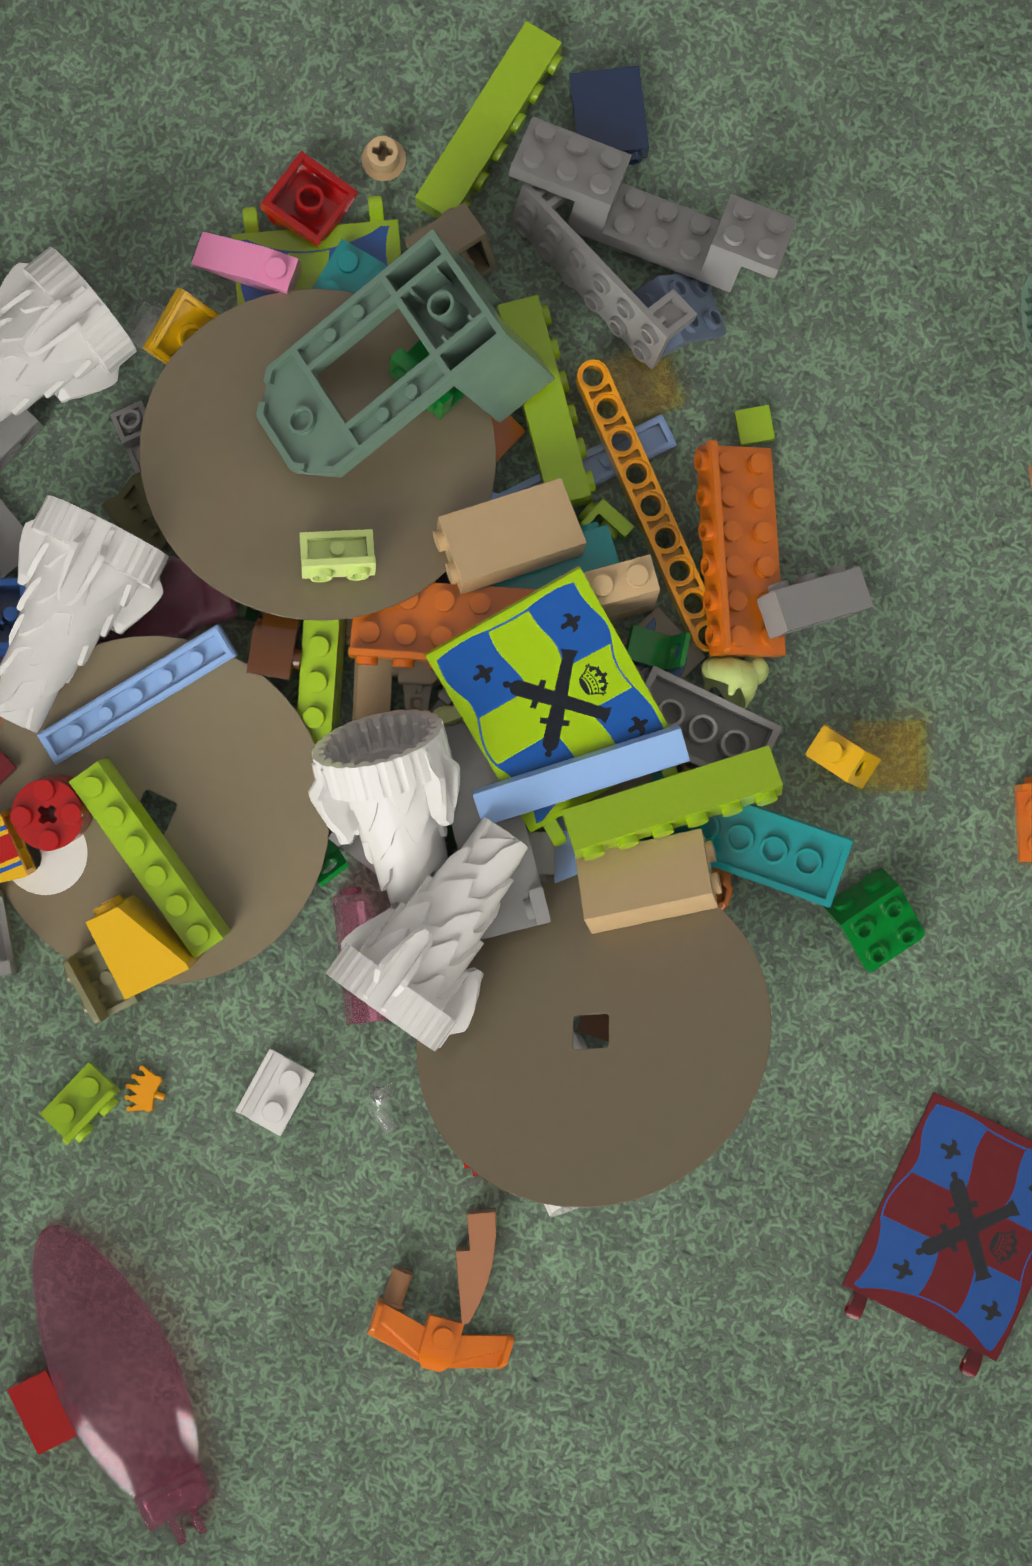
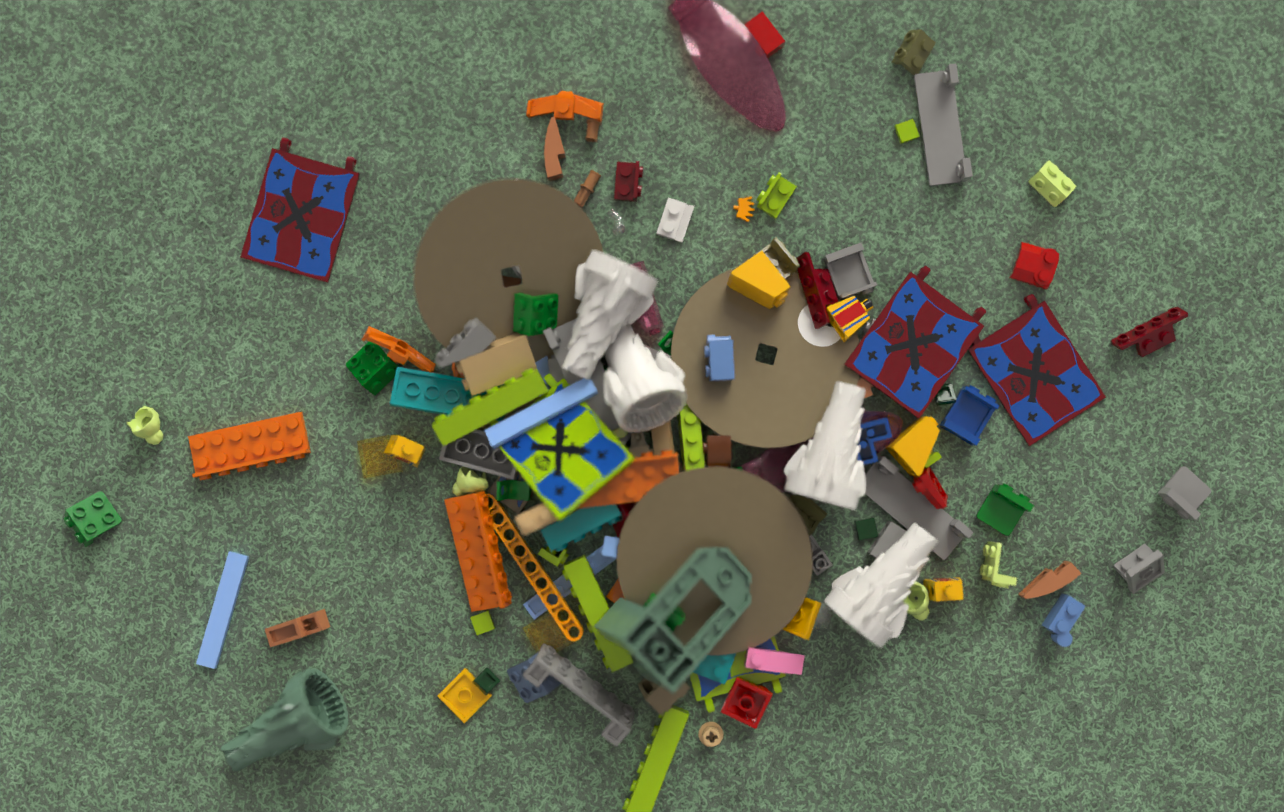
camera: 170 degrees right, 0 degrees up
(32, 816) = (827, 335): red brick -> none
(36, 468) = (866, 528): none -> dark green tile
(39, 915) = (817, 290): none -> dark red bracket
(137, 694) = (786, 413): light blue tile -> none
(150, 856) = (763, 329): lime brick -> none
(239, 817) = (720, 358): none -> medium blue hinge
(337, 555) = (692, 505): yellowish green bracket -> none
(349, 1179) = (627, 181): none -> dark red bracket
(427, 1179) = (587, 188): none -> medium nougat axle
(509, 536) = (602, 533): tan brick -> none
(561, 956) = (535, 313): none -> green bracket
(611, 109) = (591, 780): dark blue panel -> none
(644, 222) = (559, 723): light grey bracket -> none
(689, 923) = (470, 341): none -> light grey slope
(765, 321) = (486, 681): none -> dark green tile
(808, 304) = (463, 696): none -> yellow tile
(814, 600) = (433, 531): light grey brick -> none
(822, 940) = (399, 350): none -> orange plate

